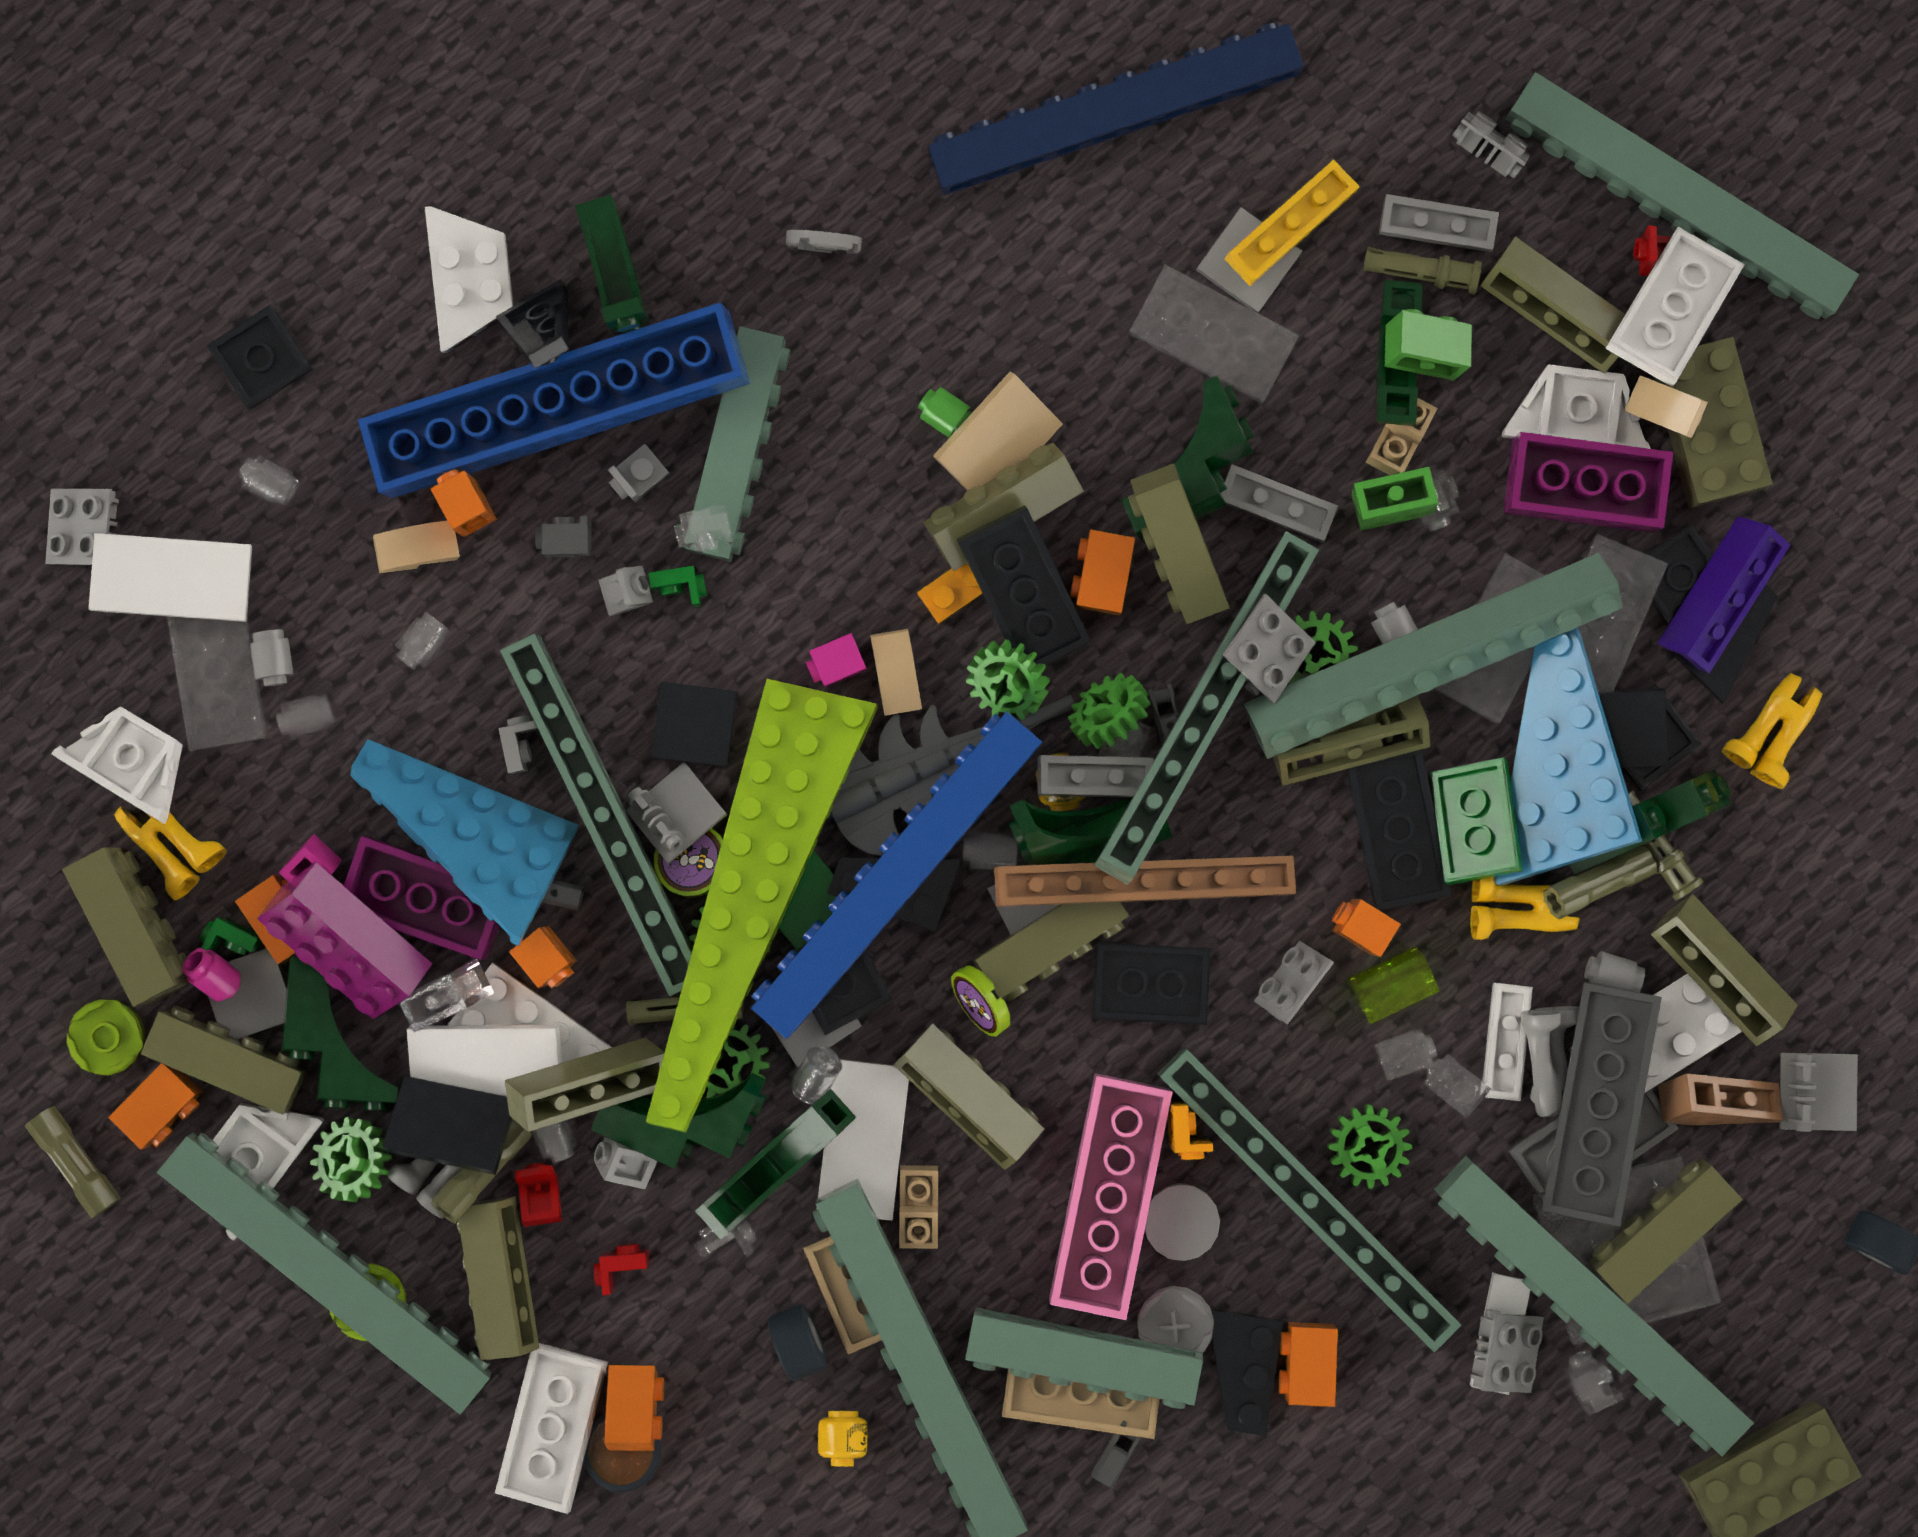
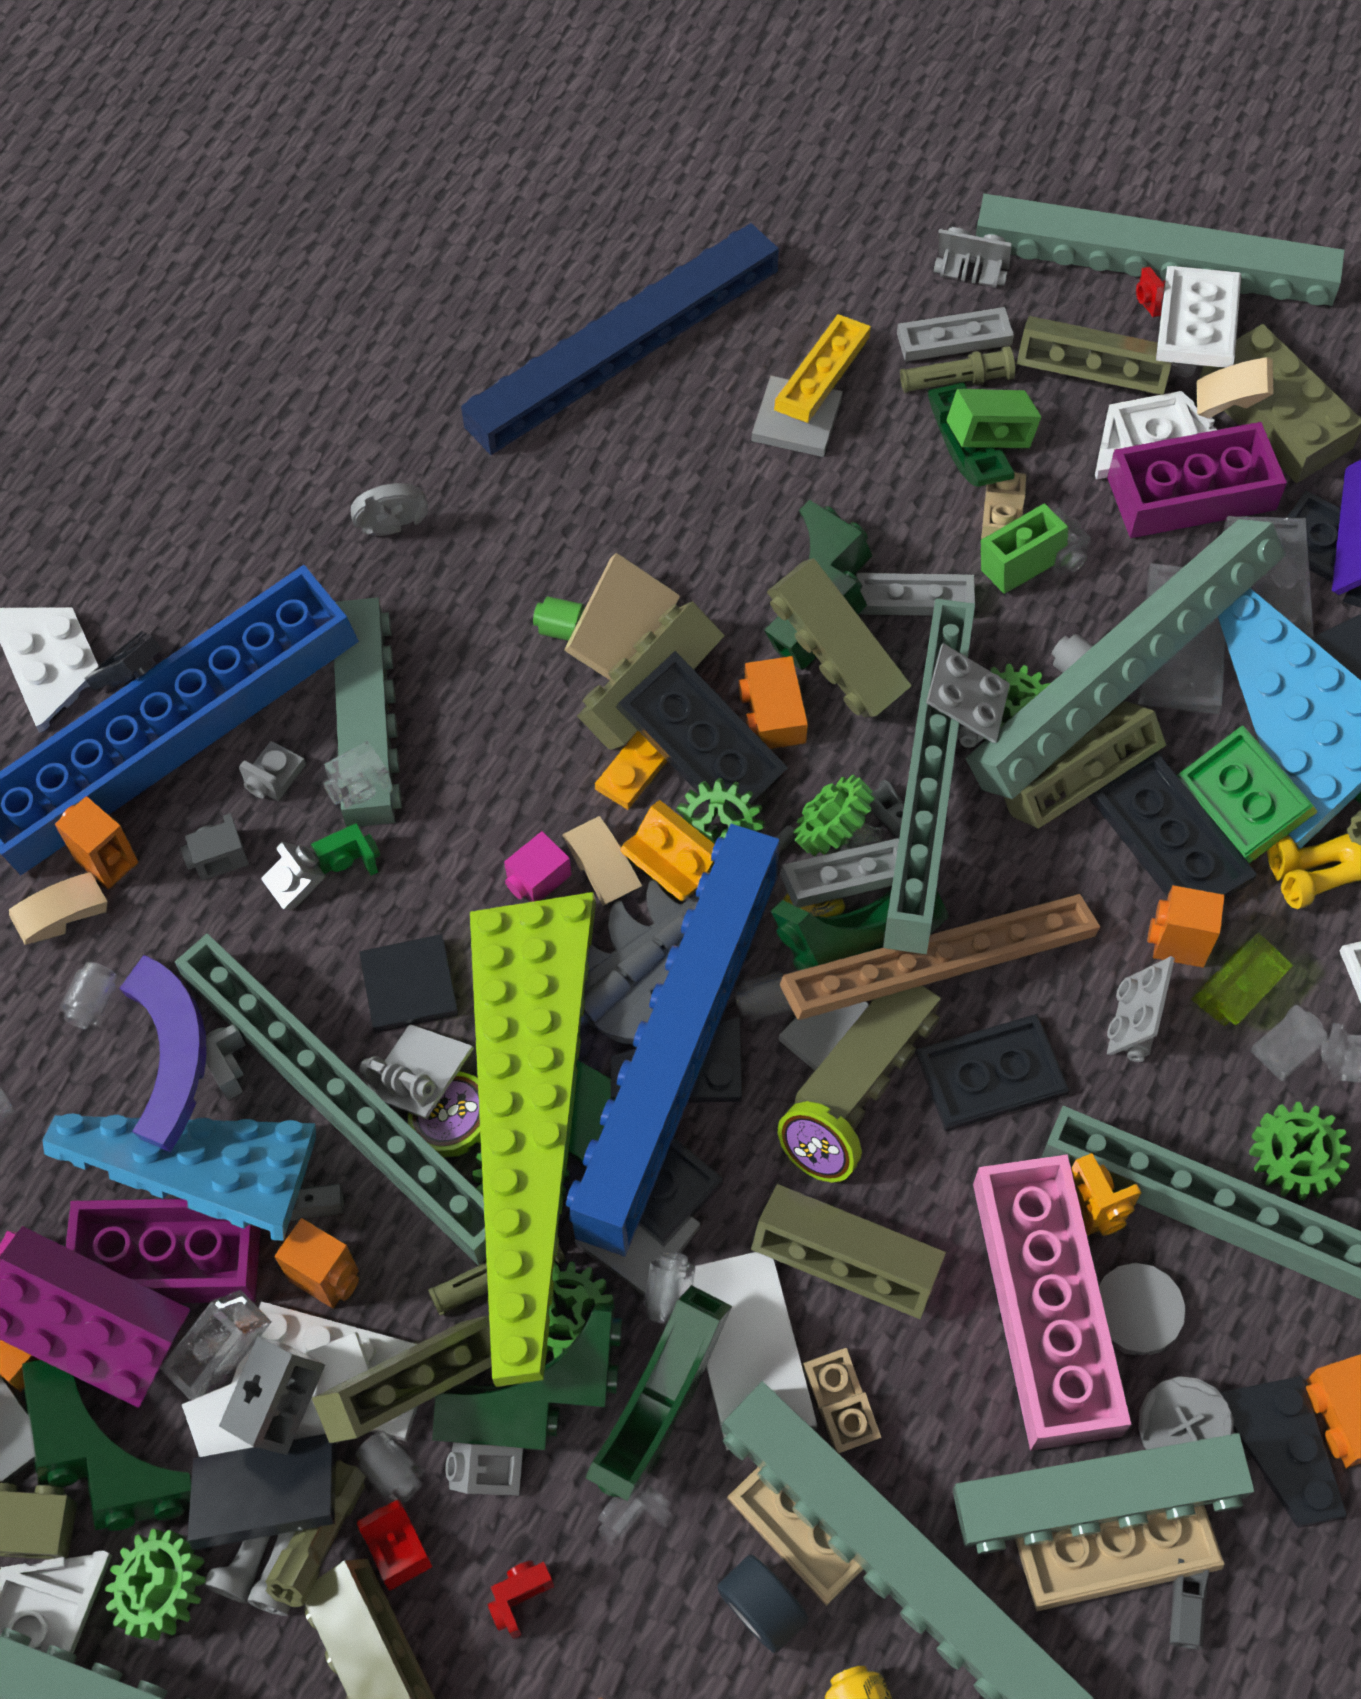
camera: 20 degrees left, 25 degrees down
(476, 1059) = (272, 1395): none -> dark grey brick
(485, 726) = (181, 1051): none -> dark purple tile
(612, 266) = (184, 588): dark green arch -> none
(955, 692) = (670, 851): none -> light orange bracket
(1213, 334) = (787, 475): clear plate -> none

